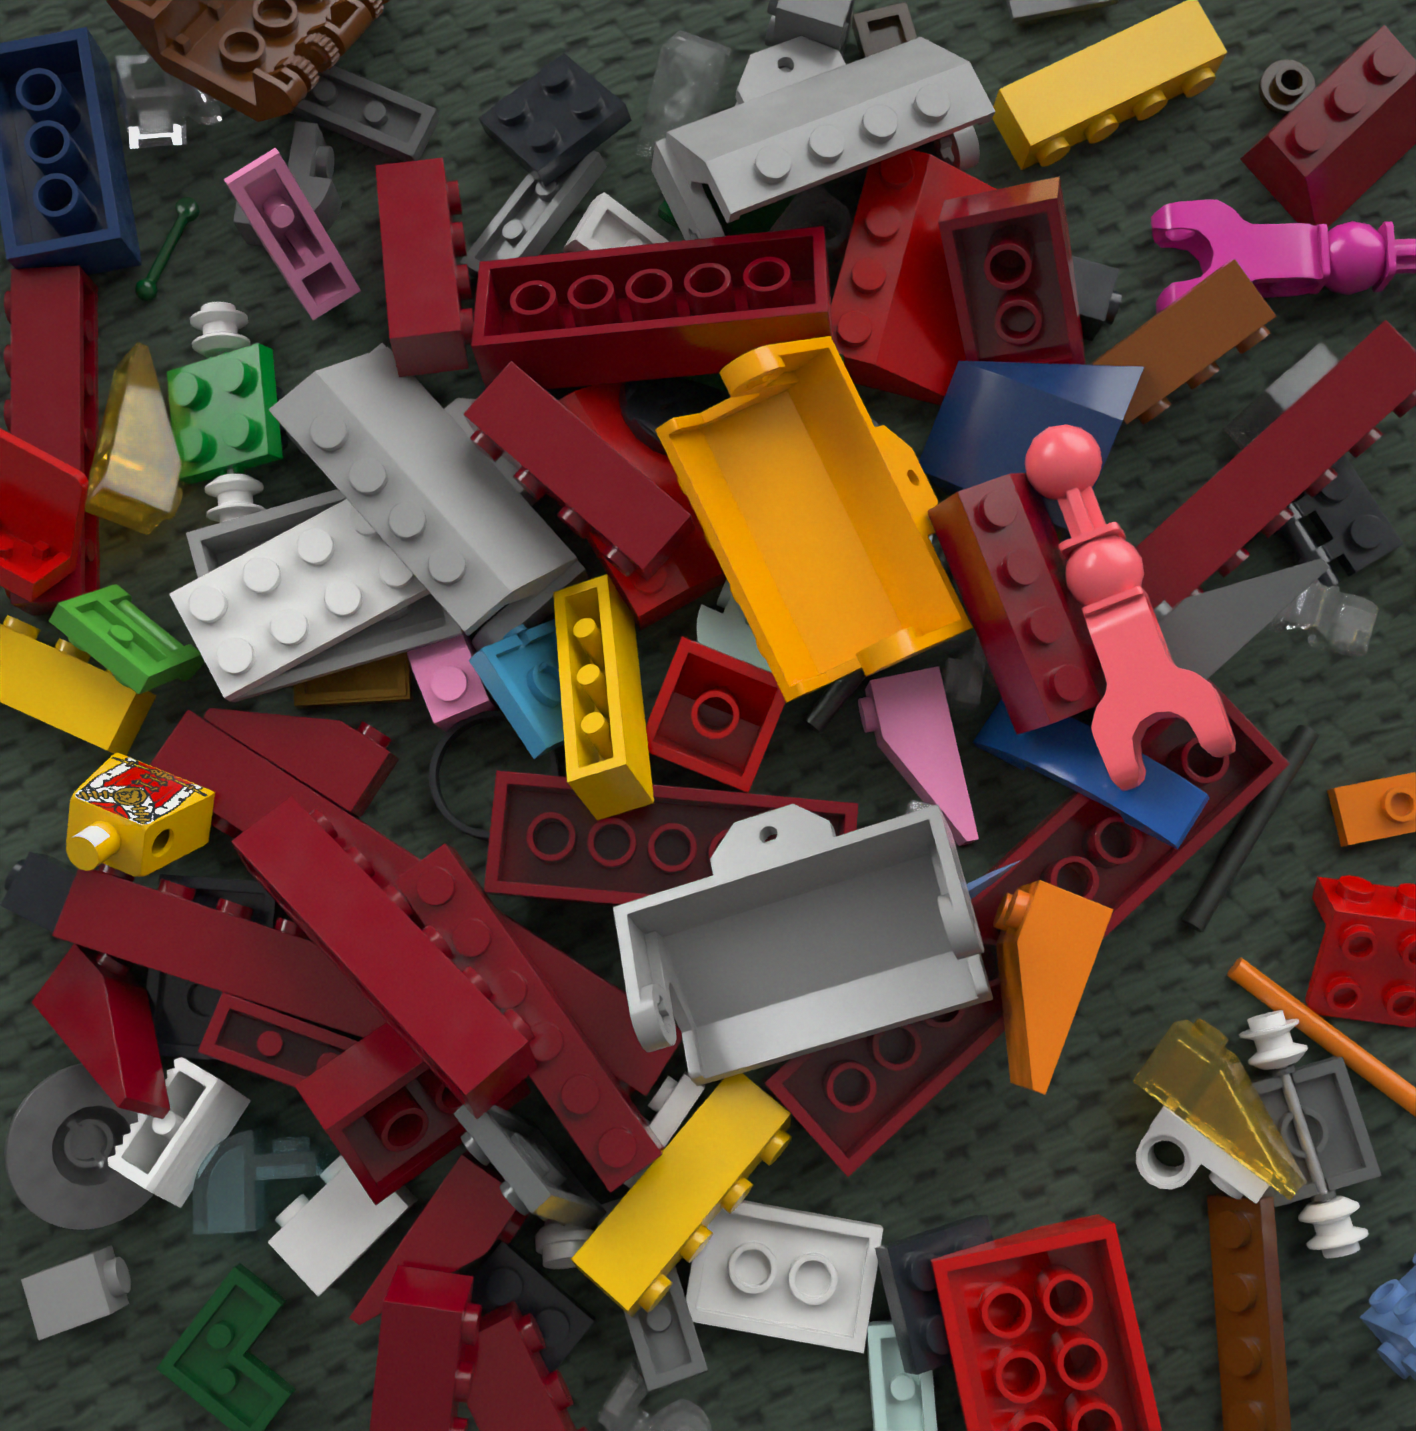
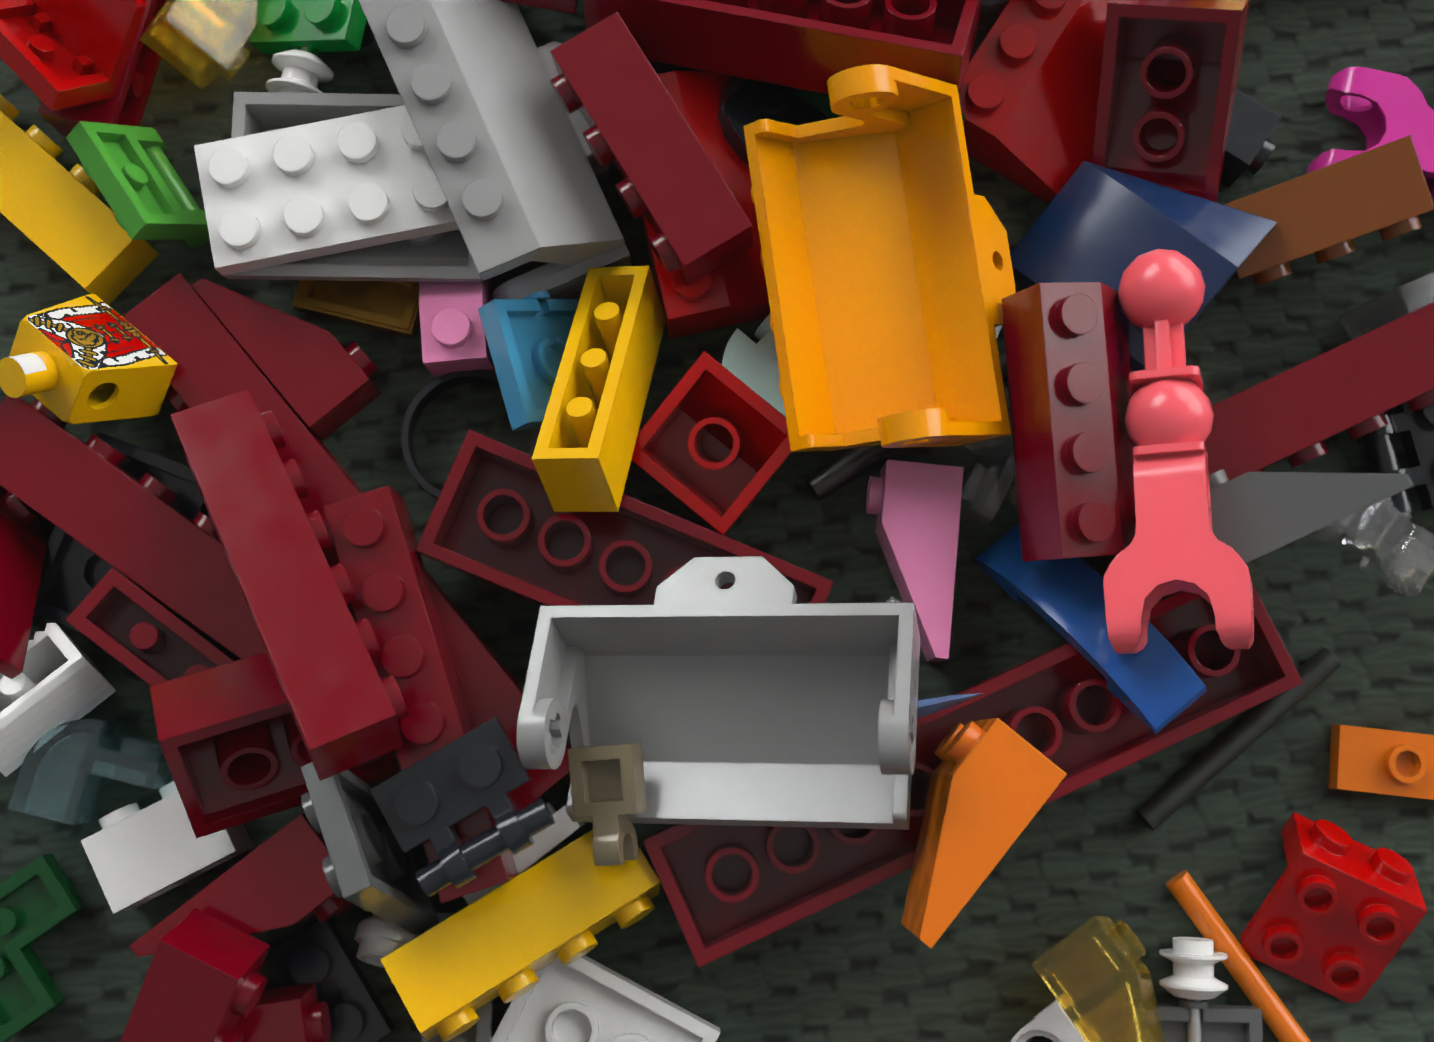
camera: 15 degrees right, 0 degrees up
(586, 1091) = (451, 786): none -> black plate
(721, 1046) = (609, 787): none -> dark tan plate

